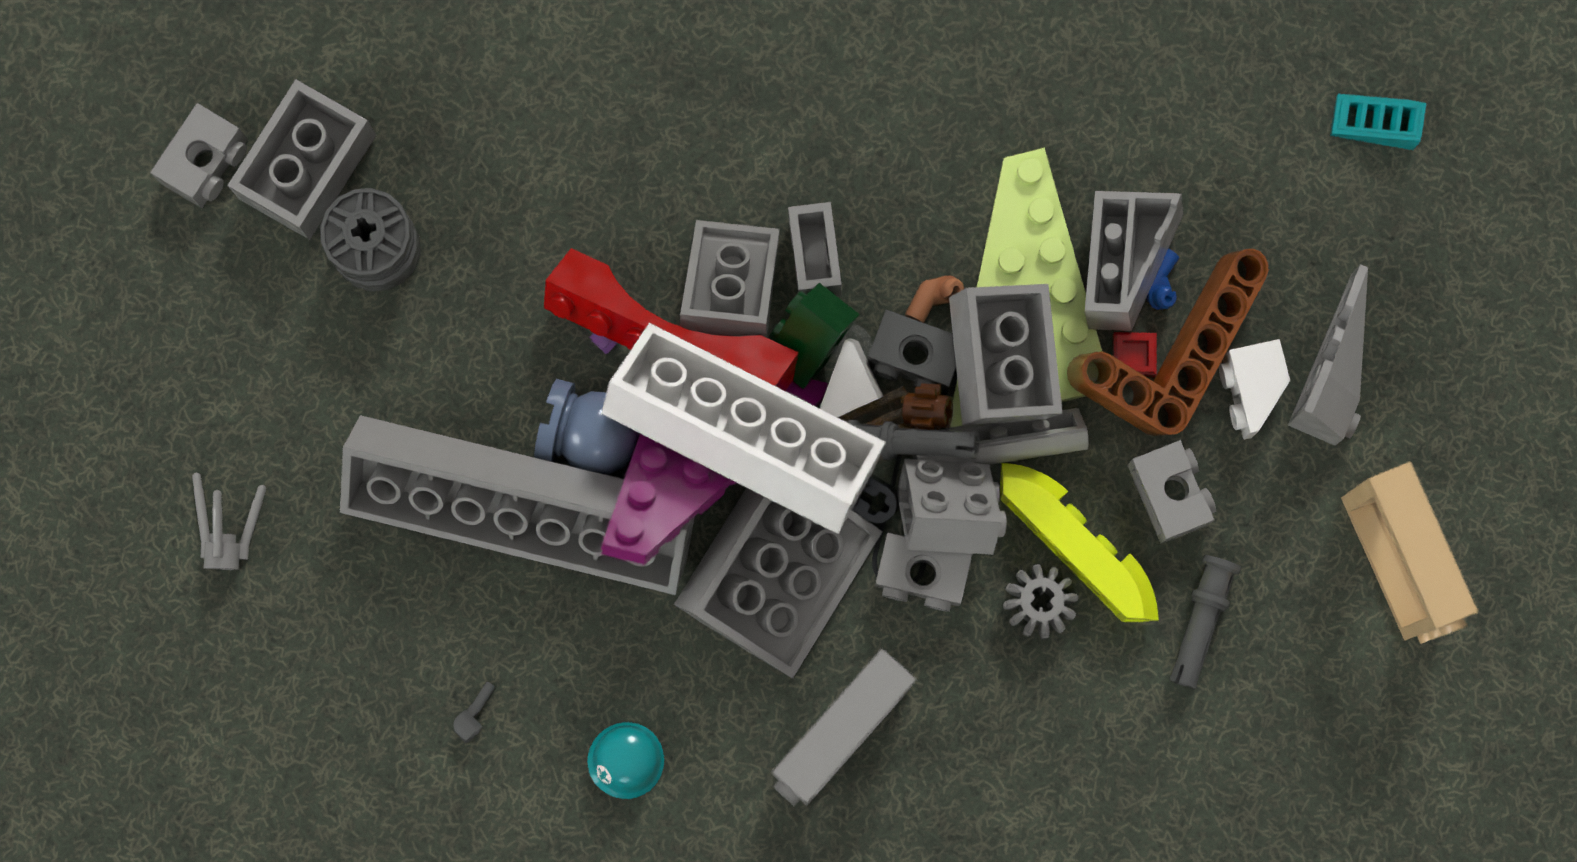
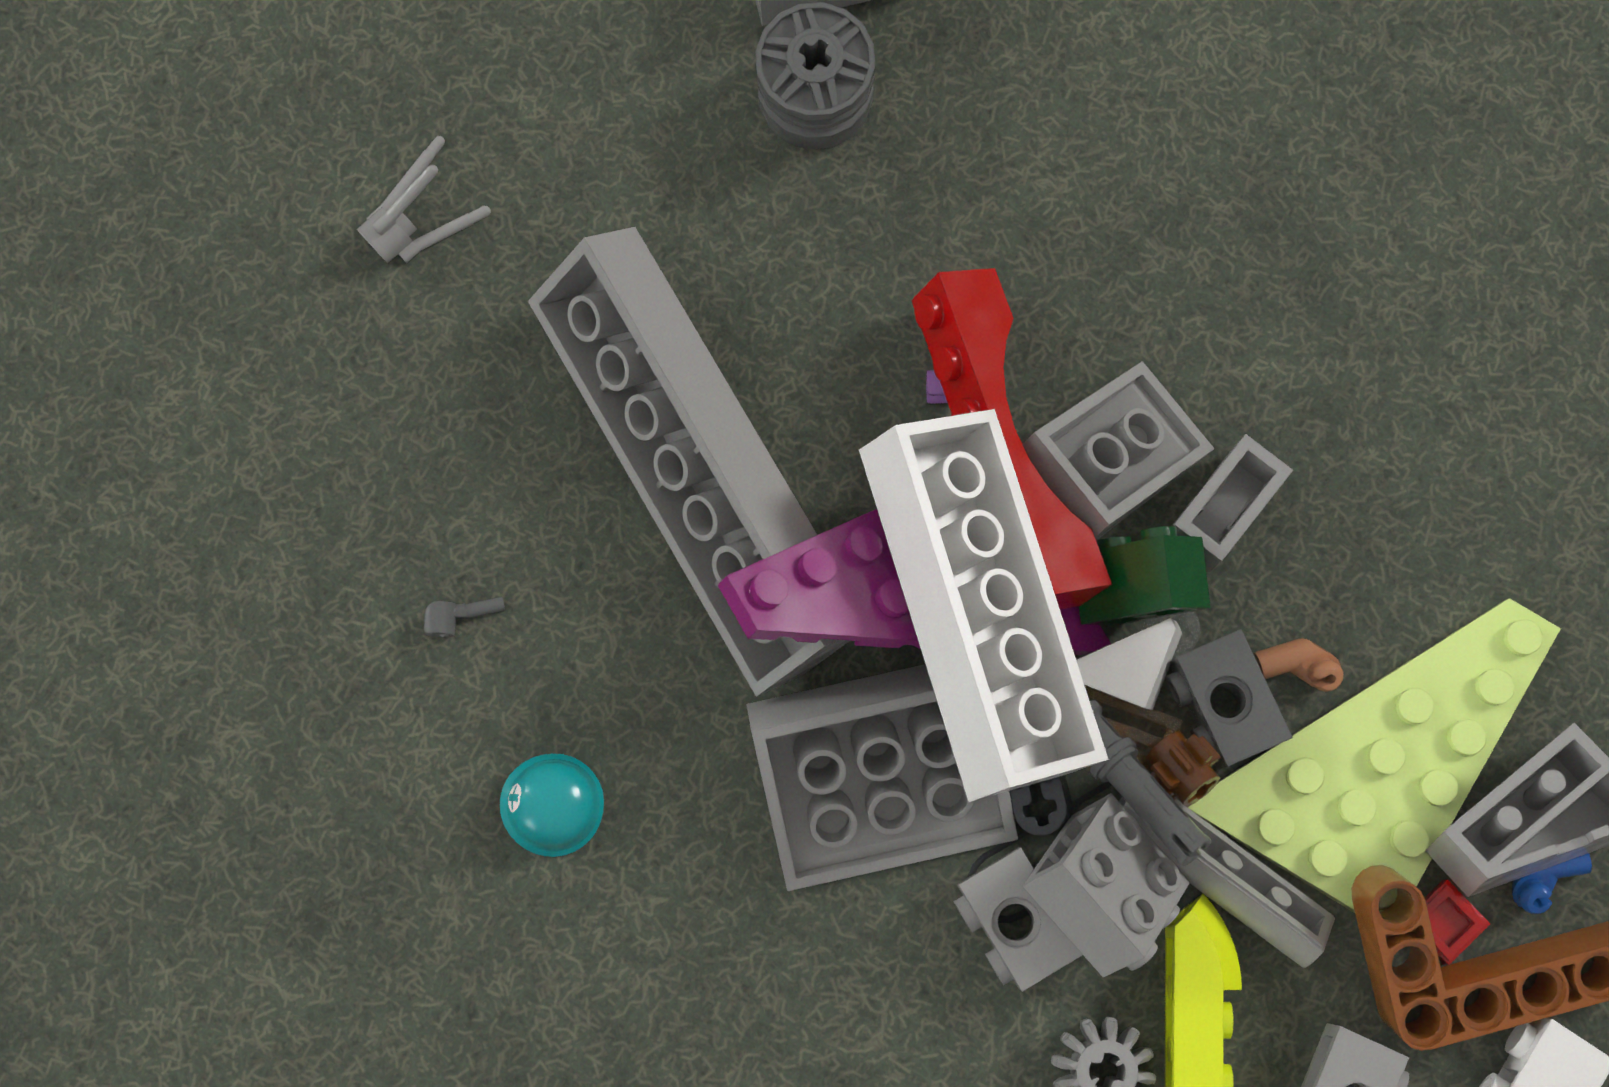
camera: 45 degrees right, 0 degrees up
(583, 433) = (824, 453): sand blue tile -> none
(842, 729) = (775, 998): light grey window -> none
(1005, 354) = (1318, 793): light grey brick -> none

